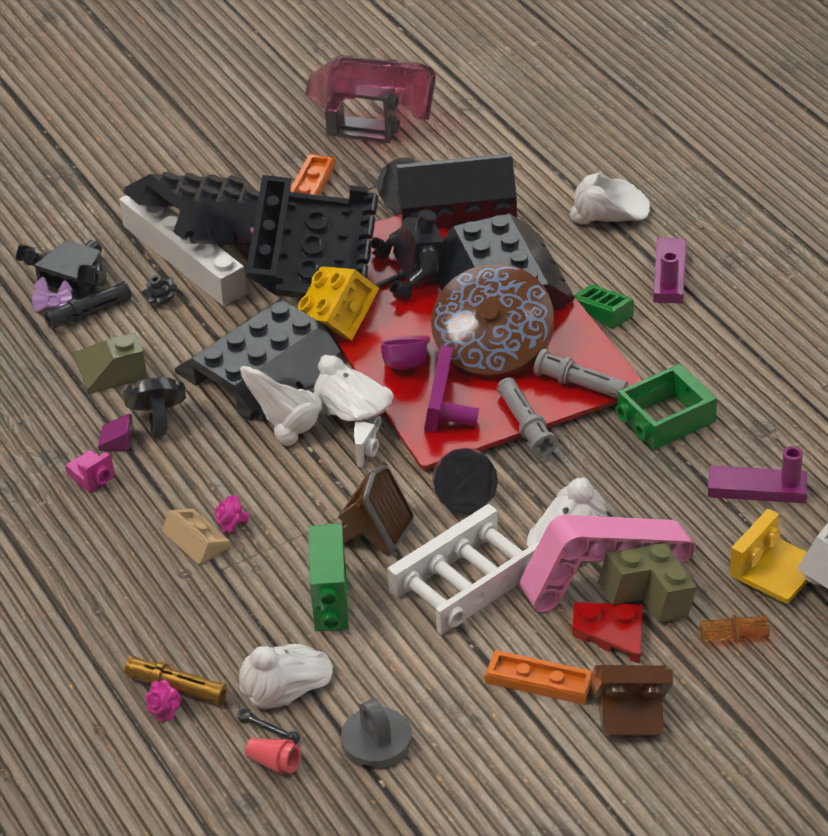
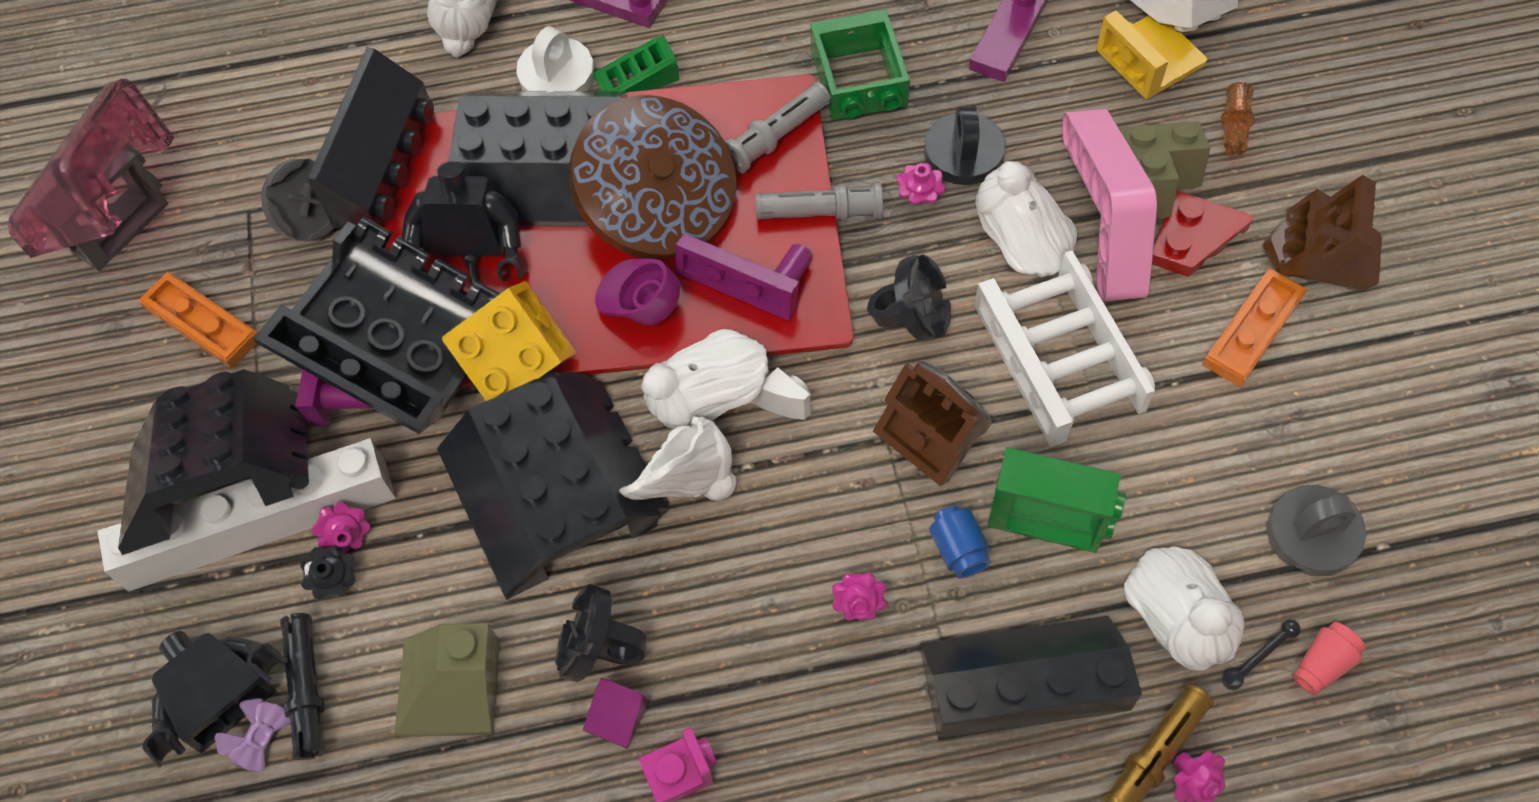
camera: 70 degrees left, 20 degrees up
(189, 284) = (340, 526): none -> dark pink plant
(194, 535) = (868, 655): tan slope -> none
(204, 605) = (1029, 677): none -> black slope
(287, 552) = (960, 541): none -> blue brick
(575, 465) = (920, 184): none -> dark pink plant
(584, 263) = (555, 64): none -> white tile
(626, 482) = (964, 146): none -> tile

